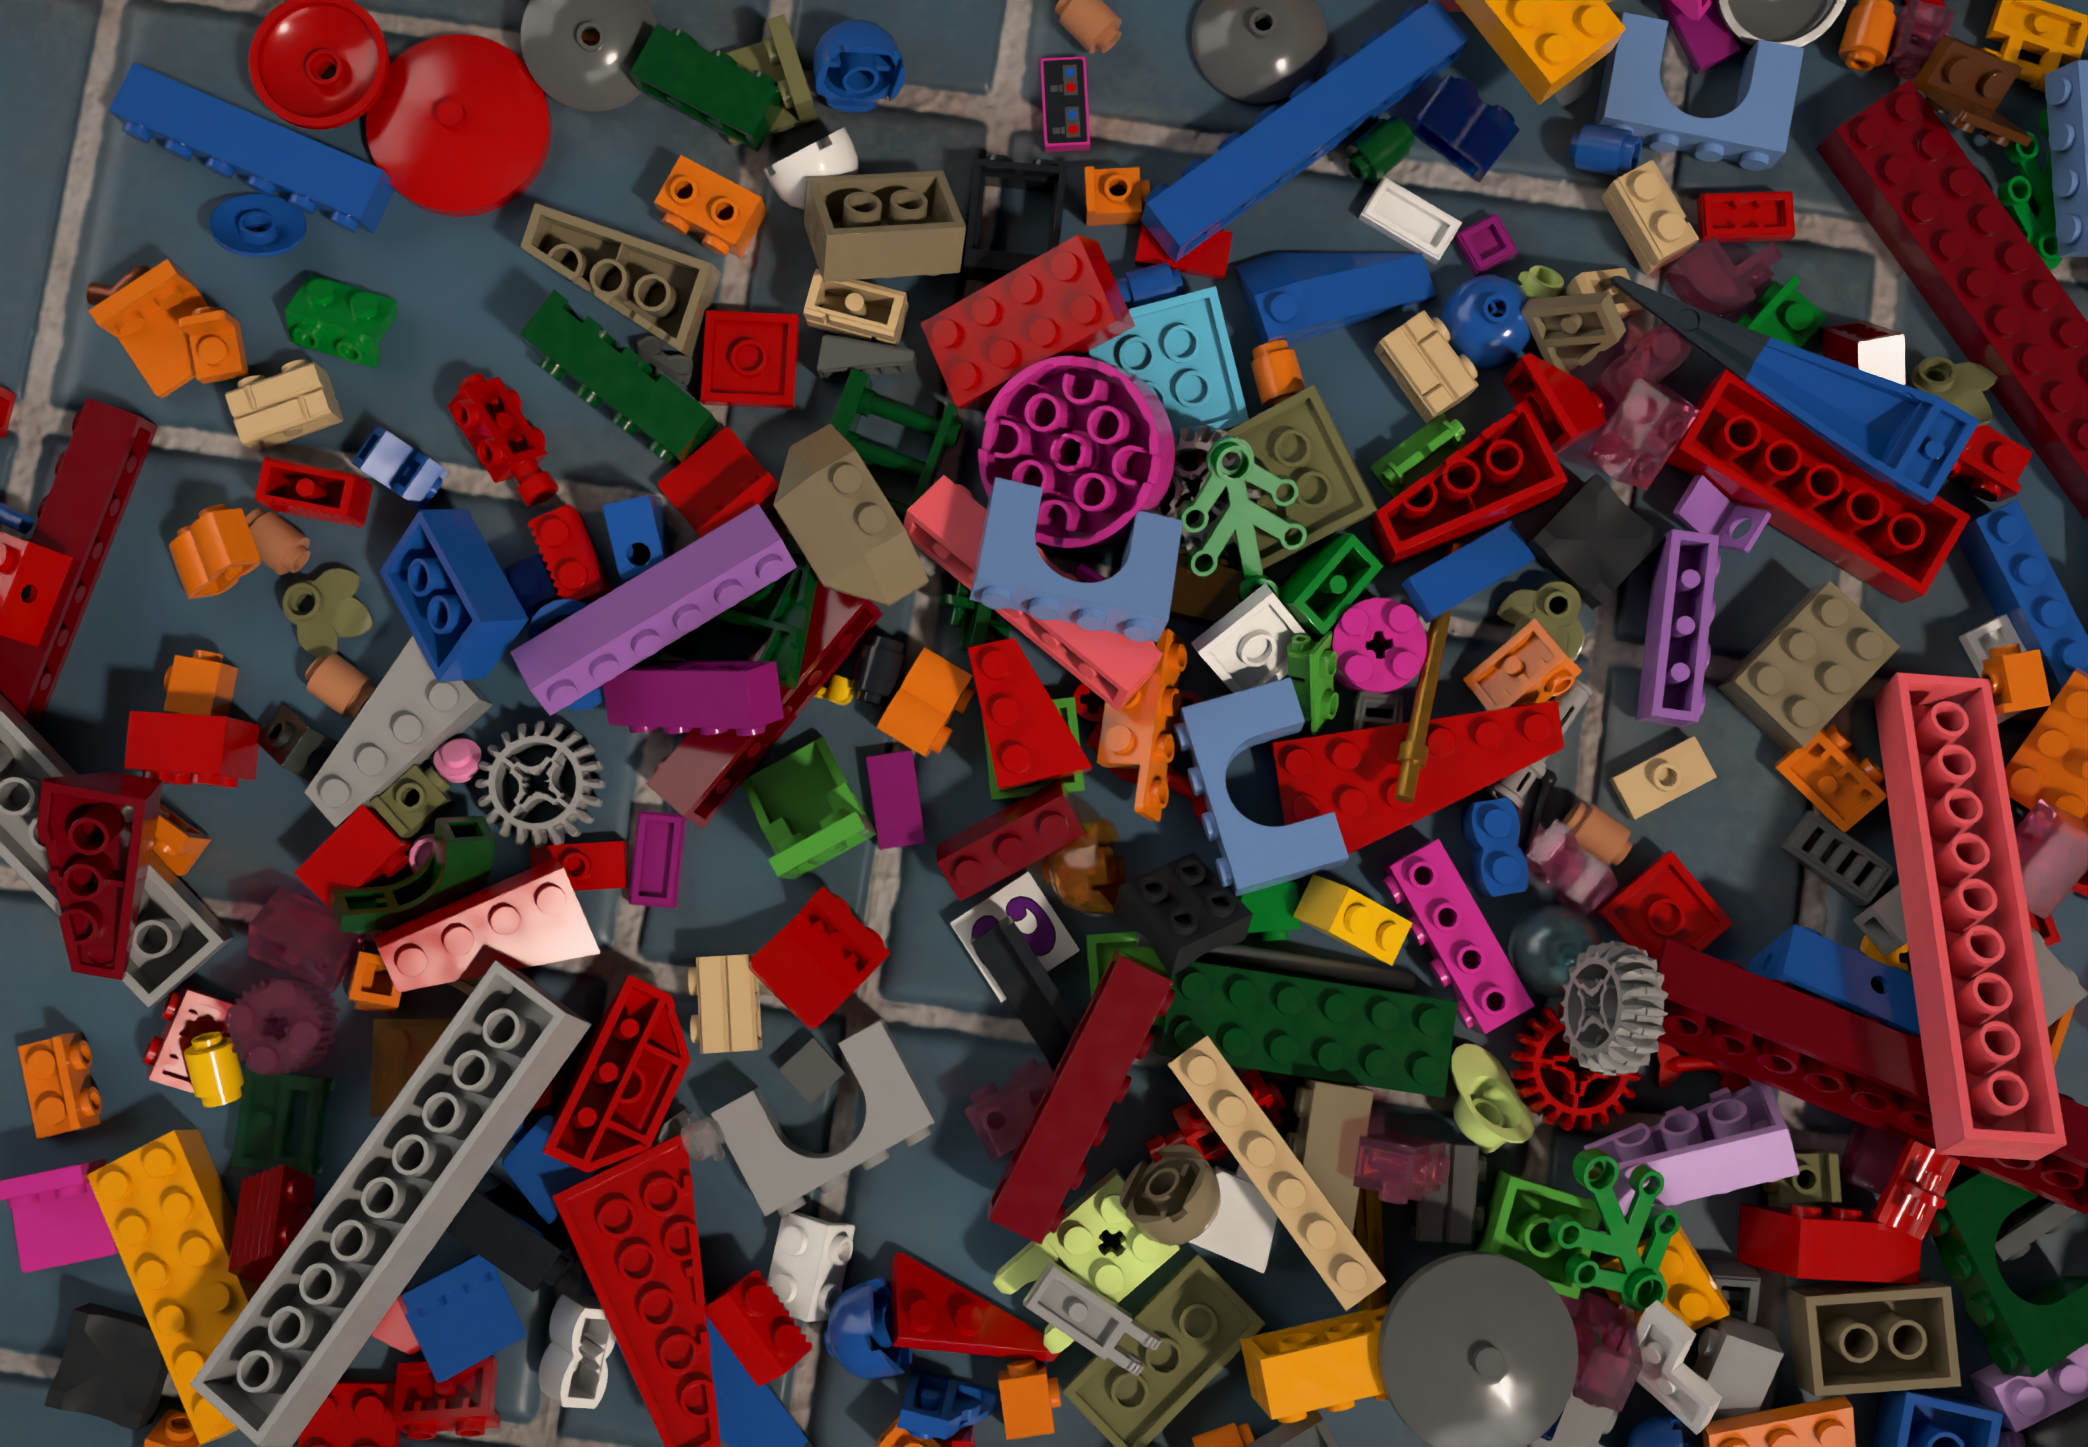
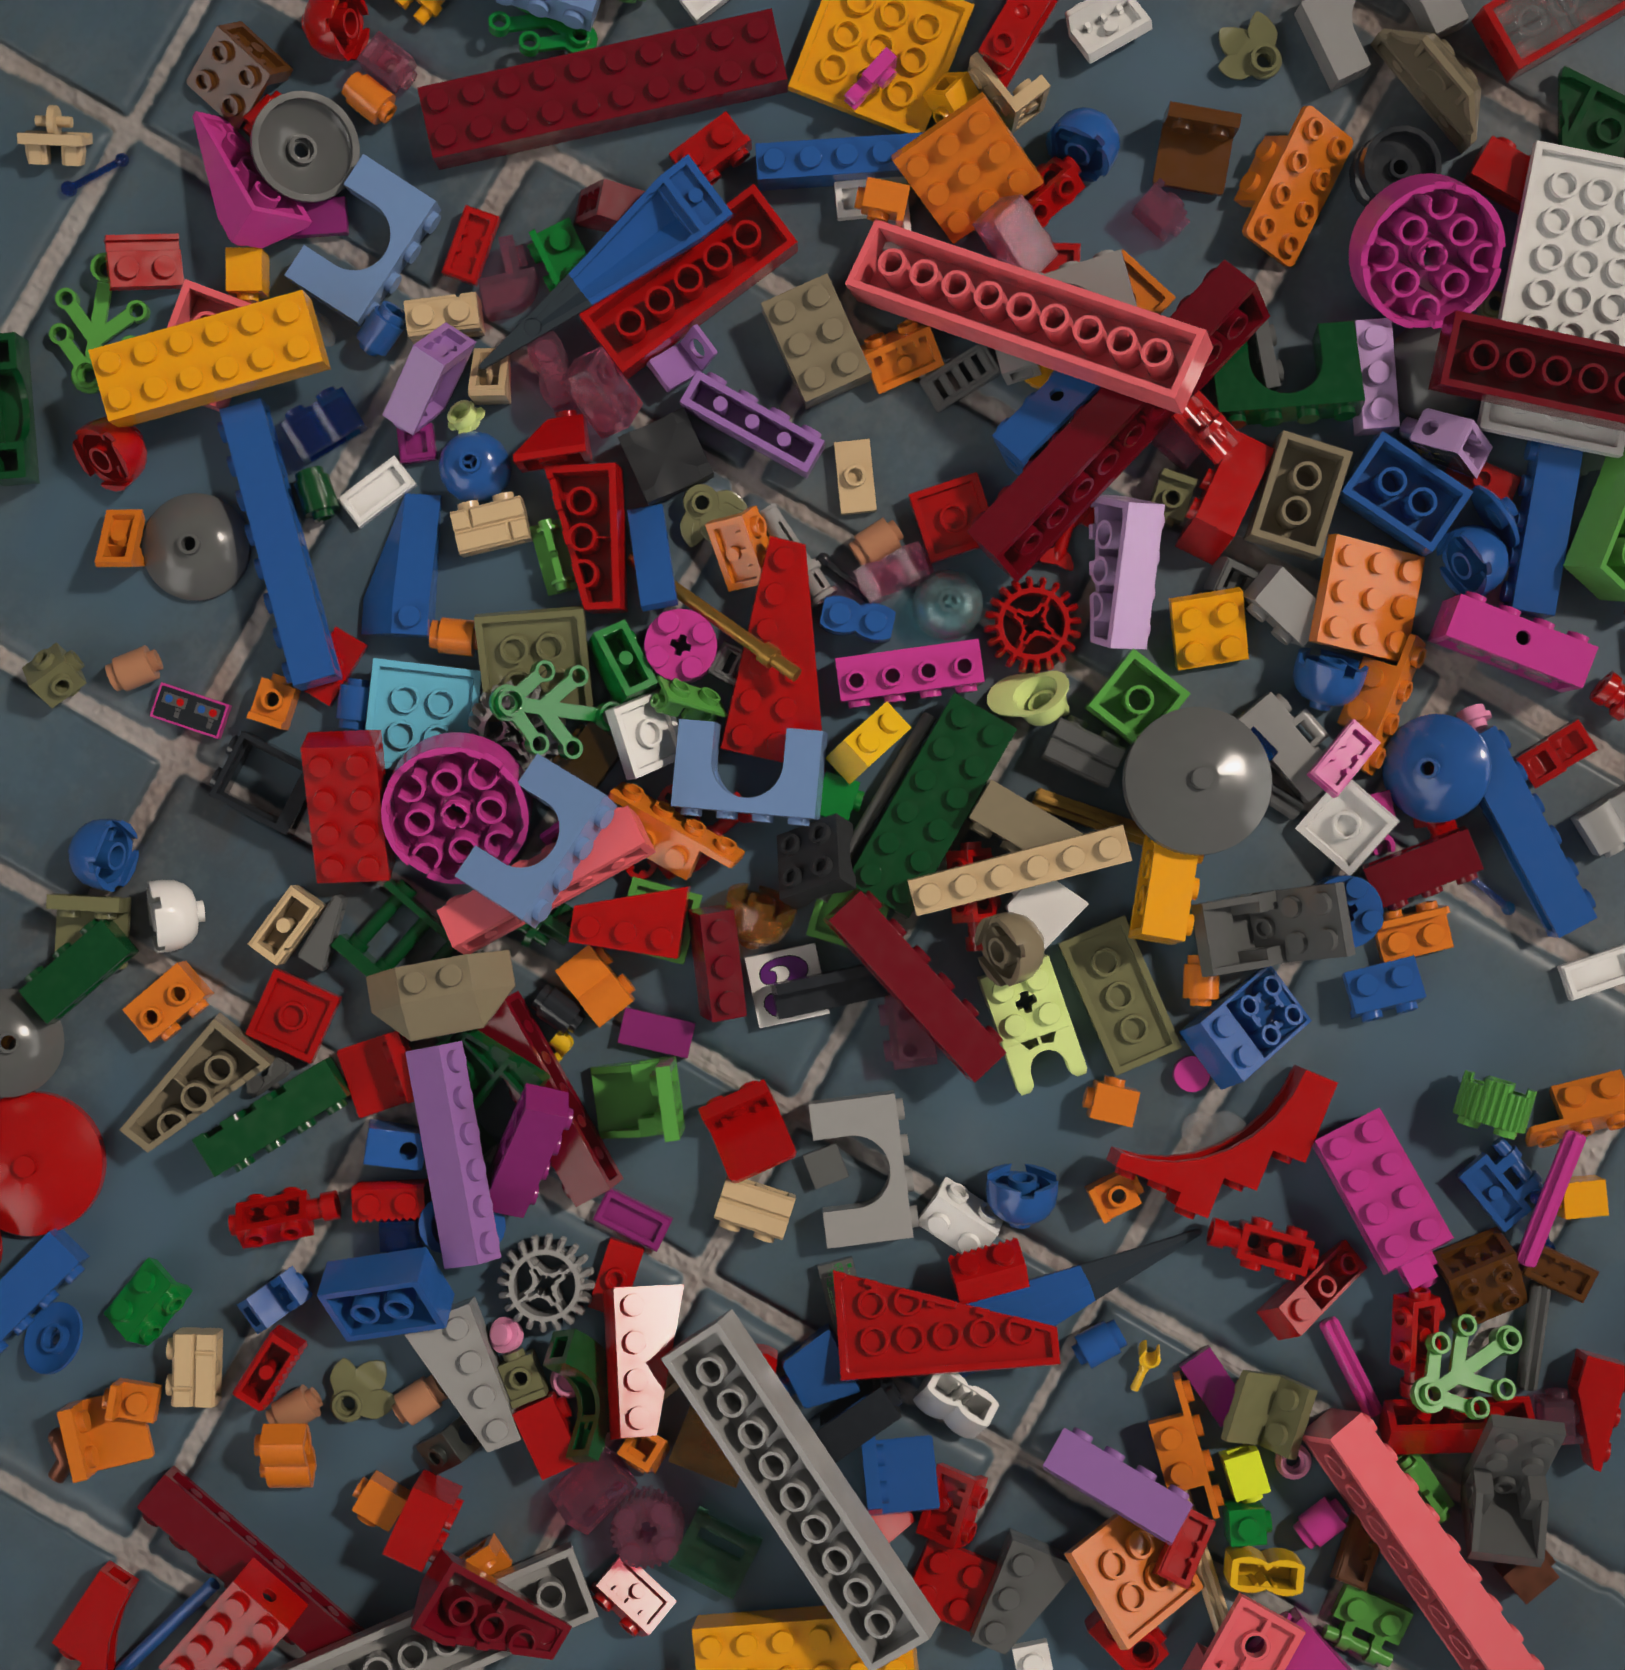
camera: 65 degrees left, 5 degrees up
(214, 1069) = (660, 1586): yellow brick -> none
(268, 1219) = (781, 1584): red brick -> none
(621, 1081) = (779, 1302): red wedge -> none
(703, 1138) = (842, 1260): clear plate -> none
(883, 225) = (234, 882): dark tan brick -> none
(943, 1405) = (1092, 1162): blue wing -> none
(945, 1317) = (1033, 1136): red wing -> none
(1088, 1317) = (1069, 1038): light grey hinge -> none
(1401, 1166) = (1050, 780): clear pink brick -> none
(1573, 327) = (505, 412): dark tan wing -> none
(1576, 221) = (428, 378): none -> medium lavender window
(1606, 1352) = (1232, 690): clear pink brick -> none
(1613, 1008) = (999, 589): light grey gear -> none
(1641, 1280) = (1157, 645): green plant -> none
(1663, 1347) = (1258, 655): white plate -> none
(1957, 384) = (661, 146): olive plate -> none
(1970, 87) = (441, 47): reddish brown bracket -> none

